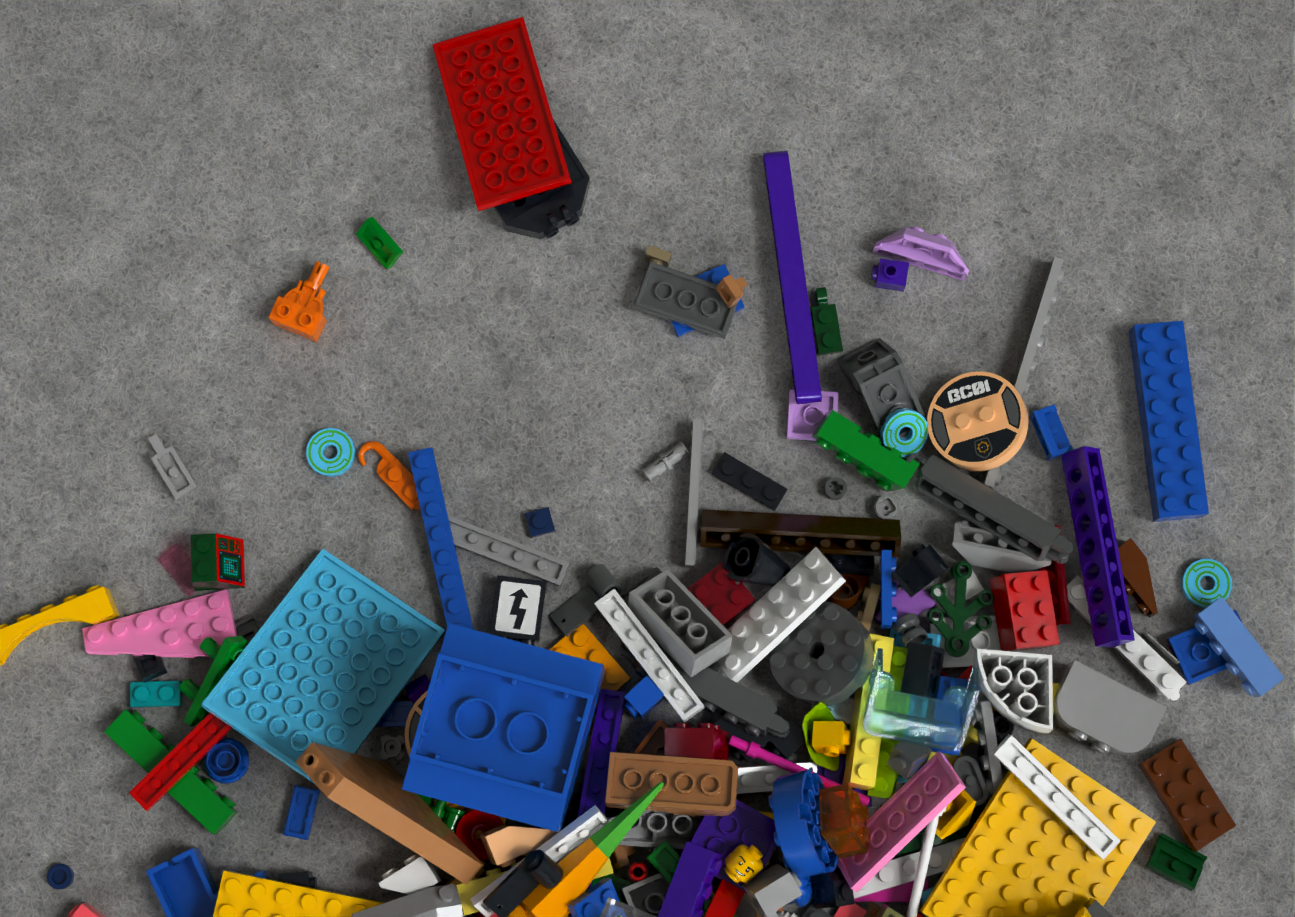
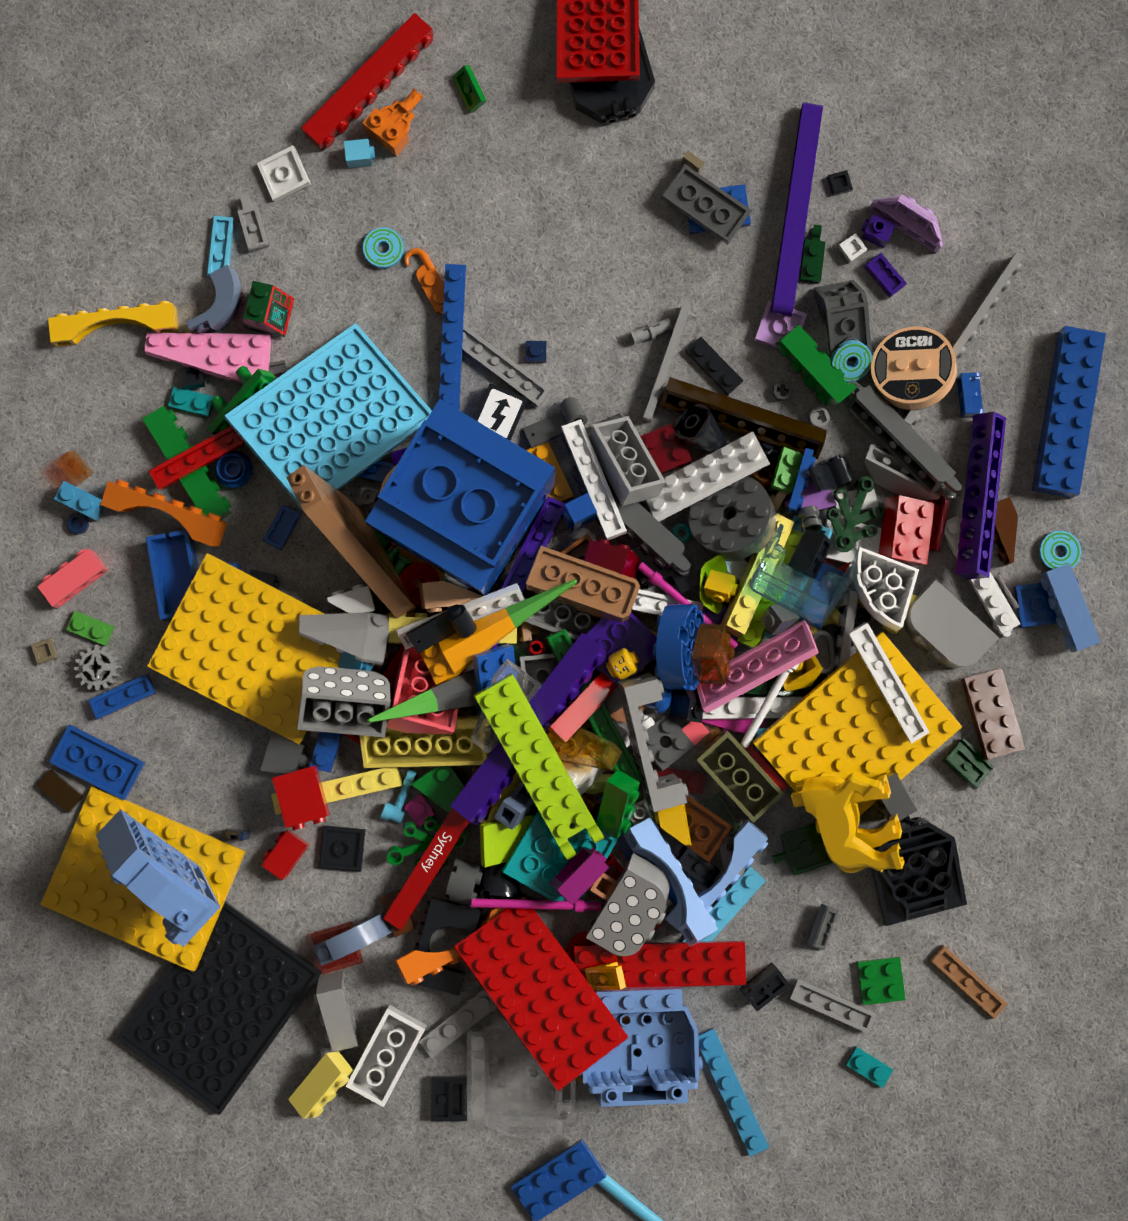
camera: 10 degrees right, 5 degrees up
(40, 810) = (75, 467): none -> clear orange brick
(56, 849) = (79, 500): none -> dark azure brick
(141, 504) = (220, 243): none -> medium azure tile
(166, 571) = (225, 304): none -> sand blue arch
(192, 399) = (283, 173): none -> white plate
(208, 841) = (201, 527): none -> orange arch
(261, 268) = (368, 82): none -> red brick
(273, 351) = (359, 153): none -> medium azure brick
(731, 289) = (744, 204): medium nougat tile -> none
(767, 678) = (682, 526): none -> teal plate
(832, 232) = (839, 183): none -> black tile
(867, 581) = (786, 470): none -> bright green plate
(868, 302) = (852, 248): none -> white plate
(914, 322) = (885, 275): none -> dark purple plate

